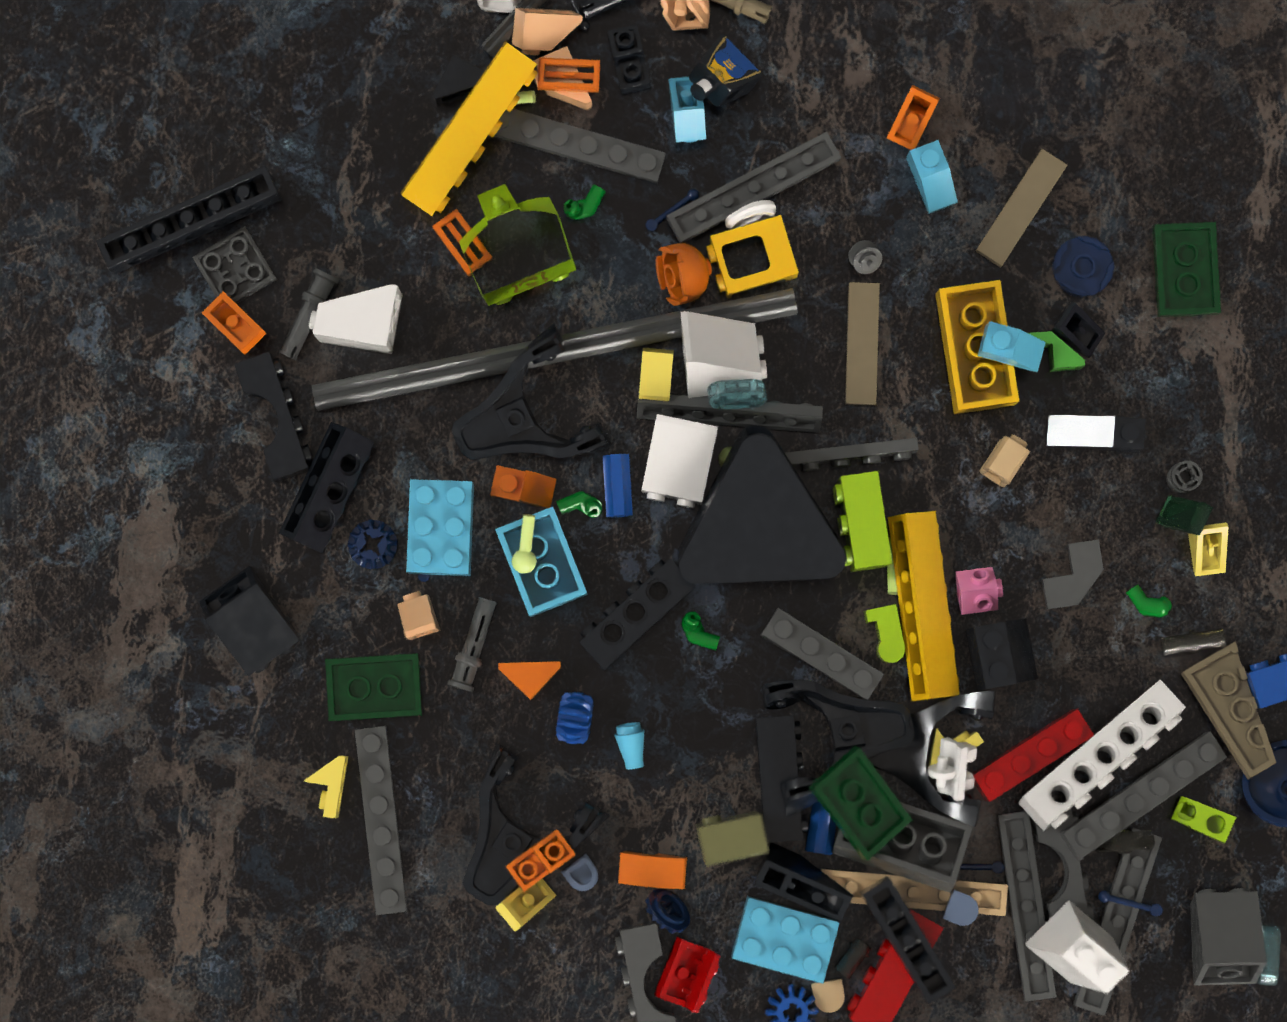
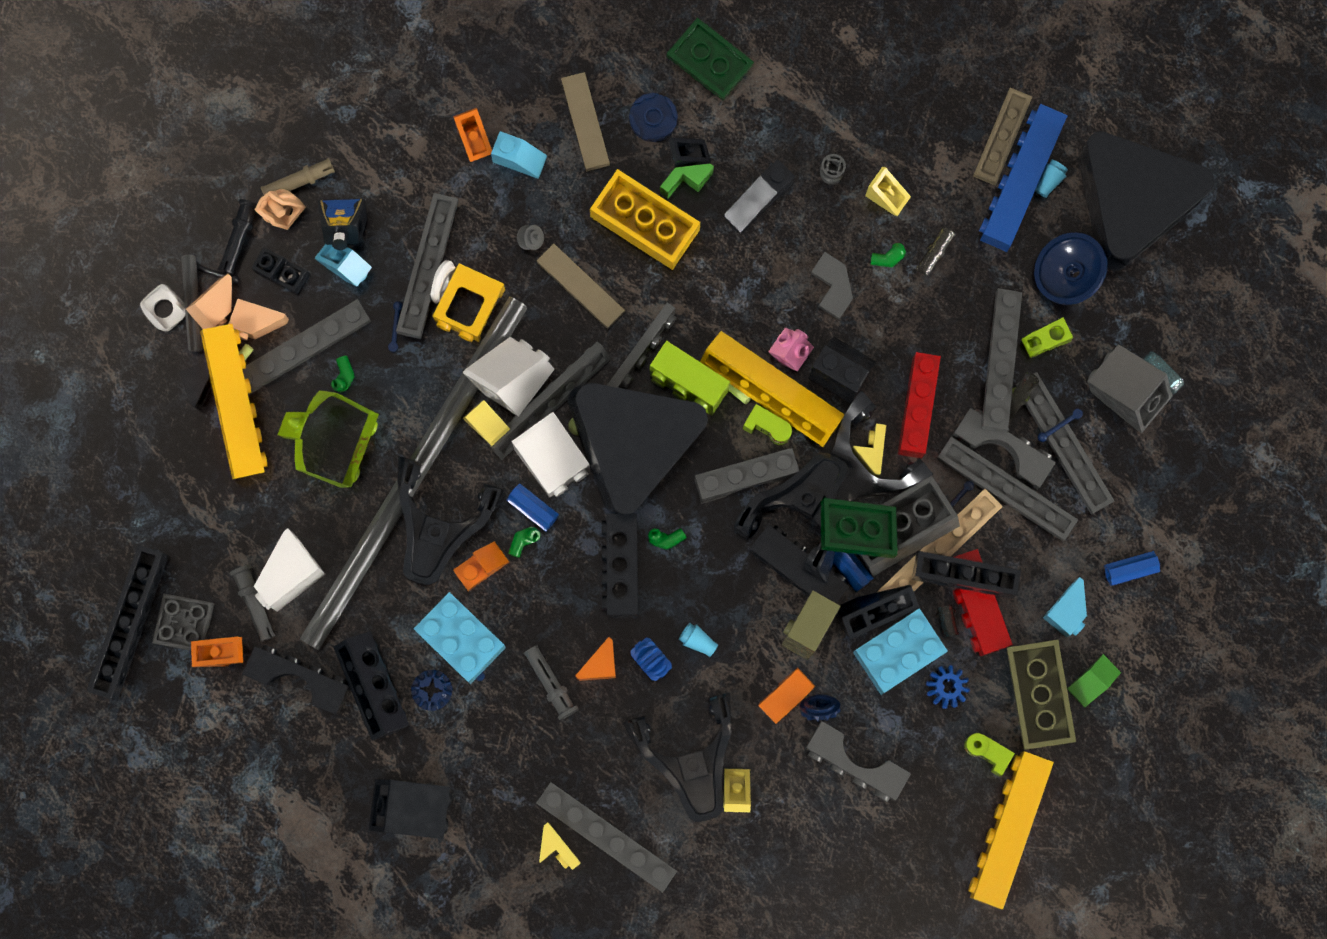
camera: 50 degrees left, 5 degrees down
(373, 687) = (520, 767): dark green plate -> none
(417, 616) = (501, 700): light nougat slope -> none
(477, 263) = (275, 467): orange tile -> none
(524, 559) = (526, 601): yellowish green bar -> none
(540, 860) = (719, 757): orange slope -> none
(555, 574) = (537, 594): medium azure brick -> none
(564, 86) = (263, 319): orange tile -> none
(581, 874) = (750, 741): sand blue tile -> none
(683, 272) = (439, 352): orange cylinder -> none
(688, 974) = (870, 730): red bracket -> none
(737, 394) = (543, 384): clear light blue beam -> none
(829, 995) = (957, 656): tan tile -> none
(951, 768) = (886, 458): white hips -> none
(961, 909) = (975, 528): sand blue tile -> none
(1005, 460) = (728, 262): tan brick -> none
(1011, 346) = (663, 197): medium azure slope -> none
(1079, 949) = (1062, 479): white slope -> none
(1156, 701) = (952, 423): white brick -> none
(1184, 515) = (855, 188): clear green tile -> none
(1227, 700) = (985, 261): dark tan wing -> none

